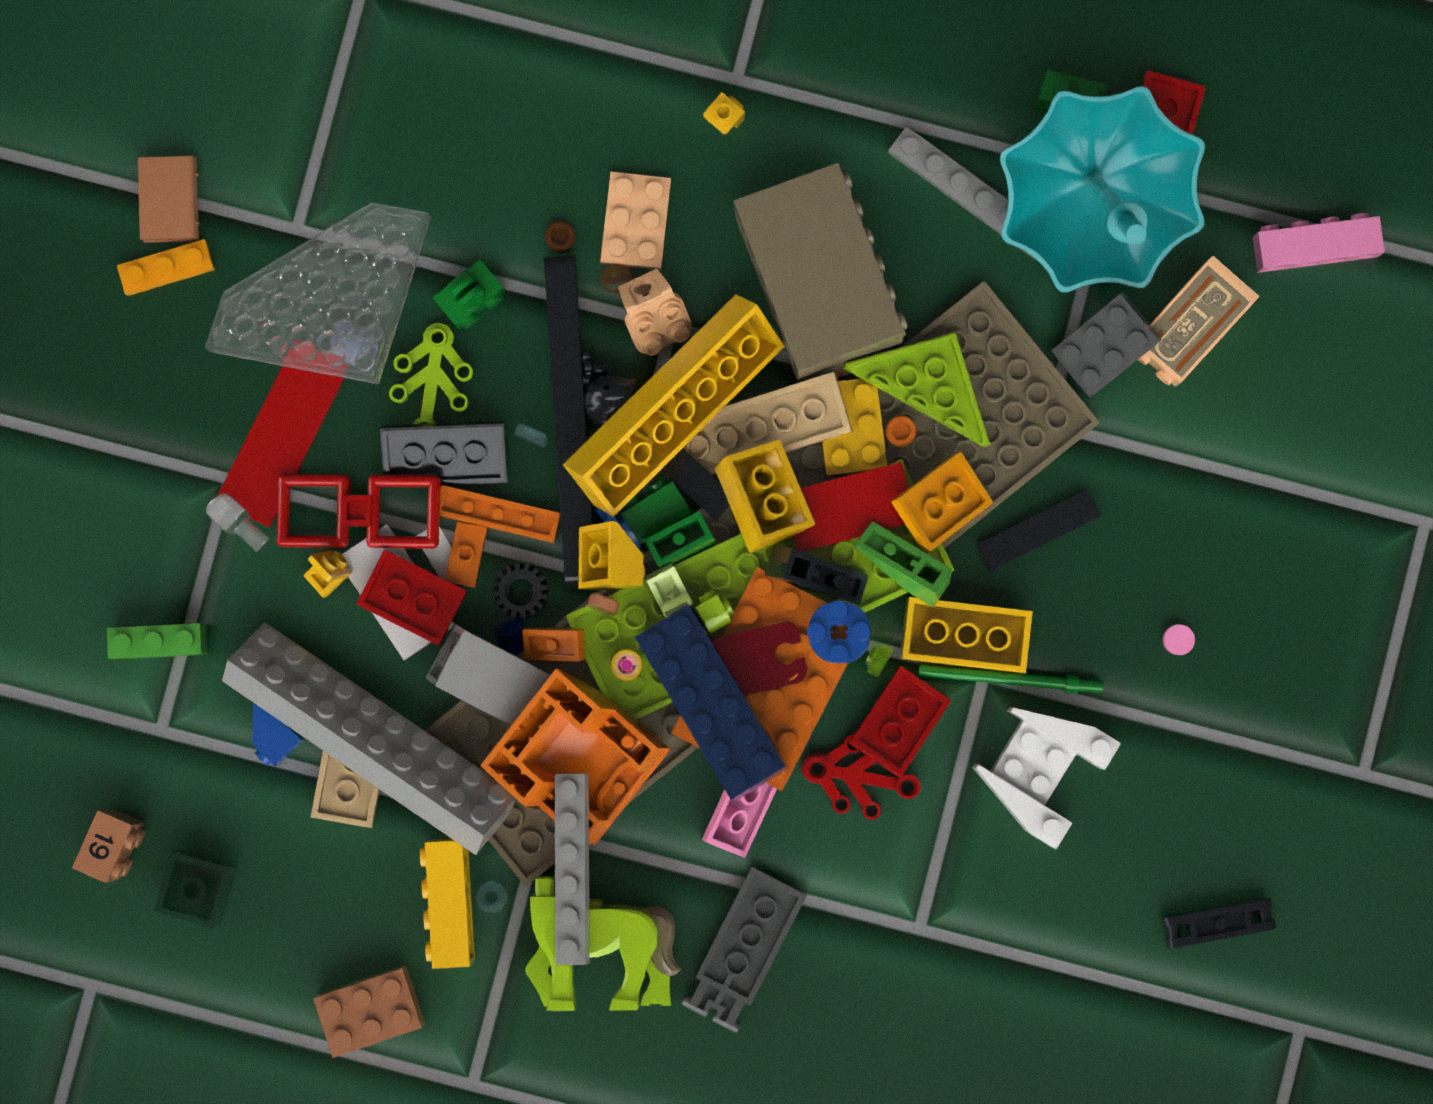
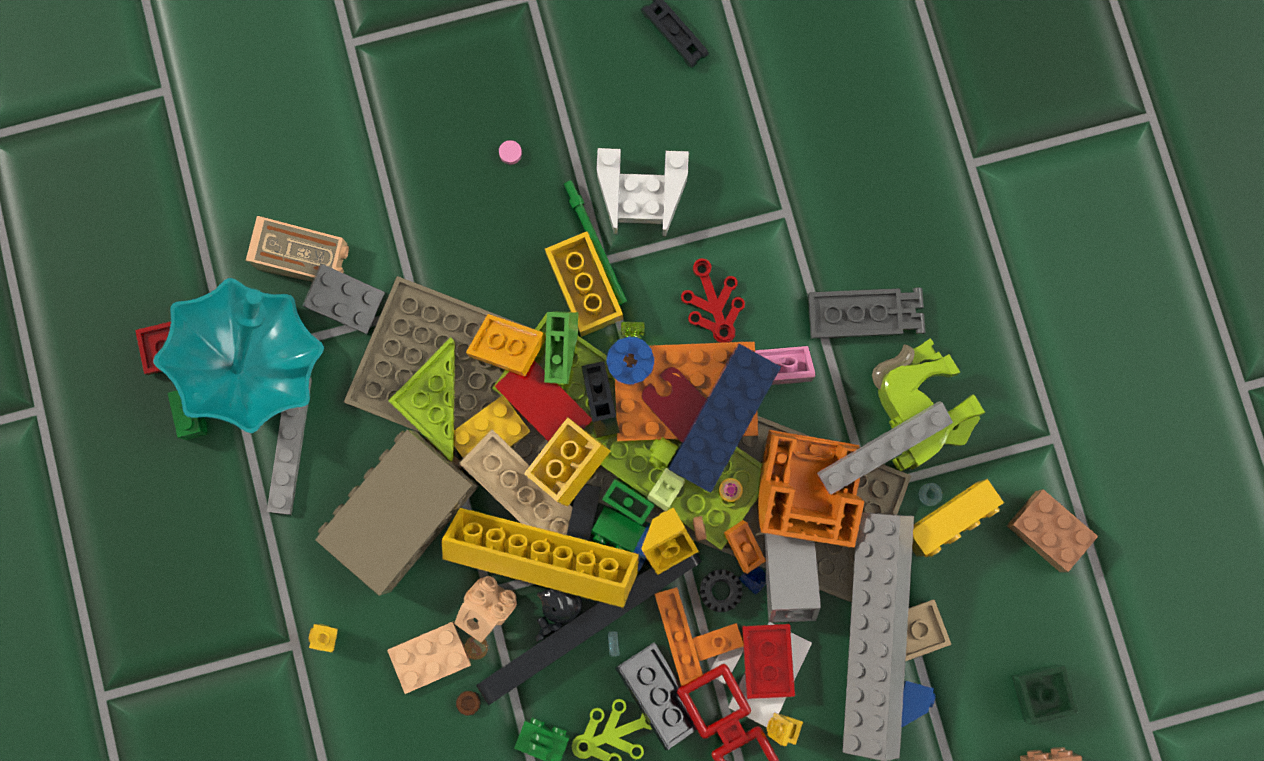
camera: 115 degrees left, 5 degrees down
(900, 431) = (474, 400): orange tile -> none
(900, 721) = (664, 295): red plate -> none
(1038, 530) = (489, 277): black tile -> none
(1318, 243) = (203, 203): bright pink brick -> none

